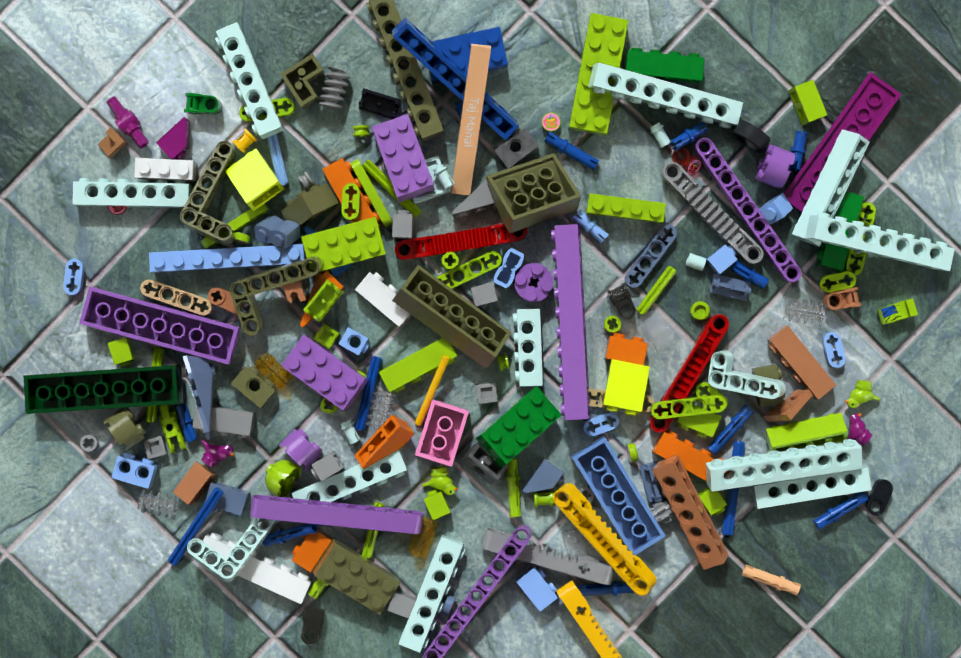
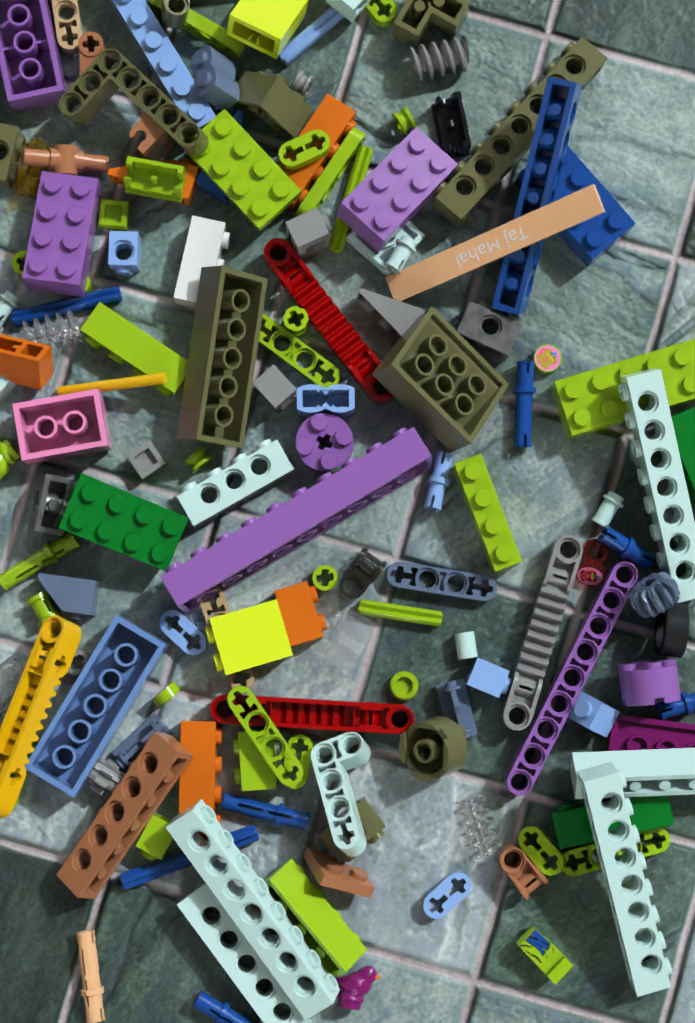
camera: 55 degrees right, 5 degrees down
(242, 238) = (184, 40): lime tile -> none
(280, 348) = (65, 160): none -> nougat pin
(726, 136) = (654, 594): none -> sand blue gear
(746, 313) = (433, 748): none -> olive brick
(749, 274) = (487, 726): blue axle -> none
(801, 362) = (406, 858): nougat brick -> none
(861, 394) = (406, 964): lime animal -> none

